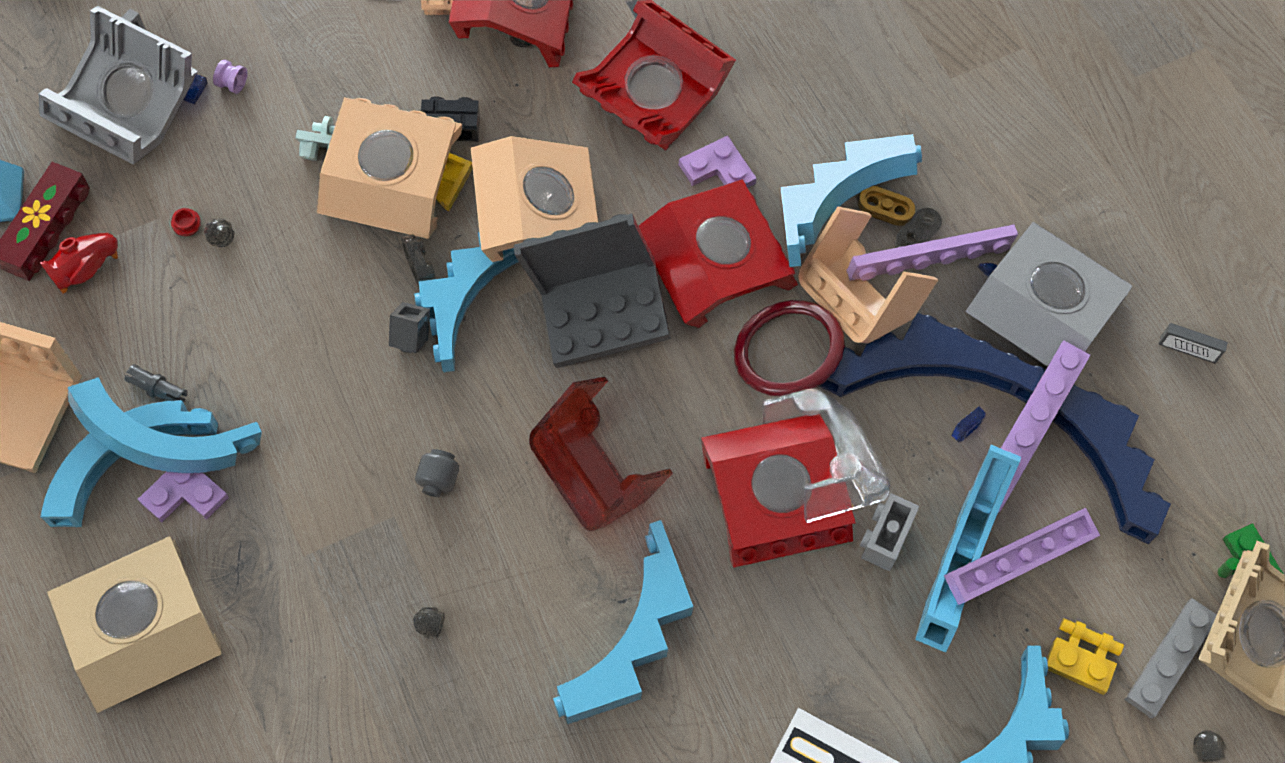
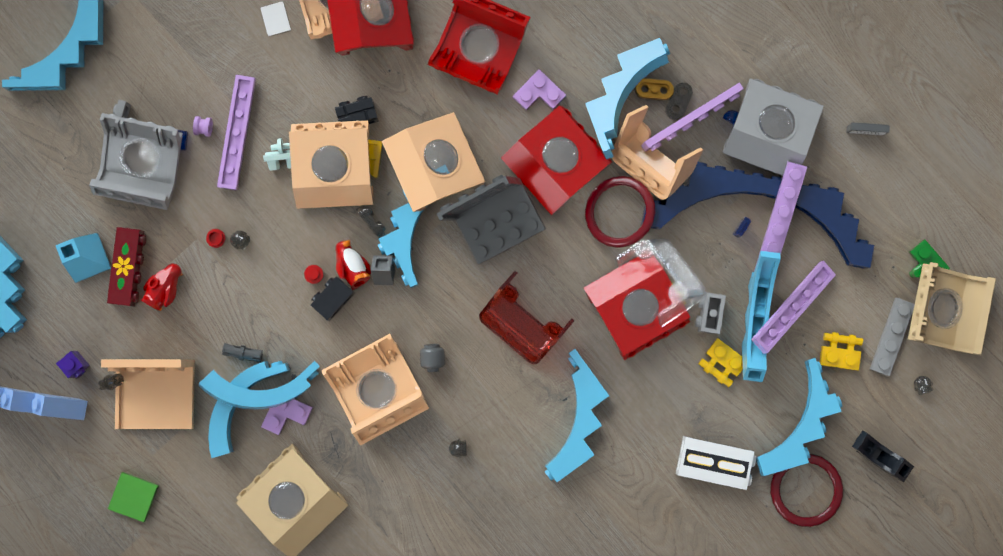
camera: 10 degrees left, 20 degrees up
(272, 99) = (236, 132): none -> lavender plate
(306, 309) = (313, 274): none -> red plate
(319, 345) = (332, 298): none -> black brick
(332, 489) = (376, 389): none -> light nougat panel
(365, 309) = (351, 265): none -> animal
(895, 610) = (725, 357): none -> yellow plate

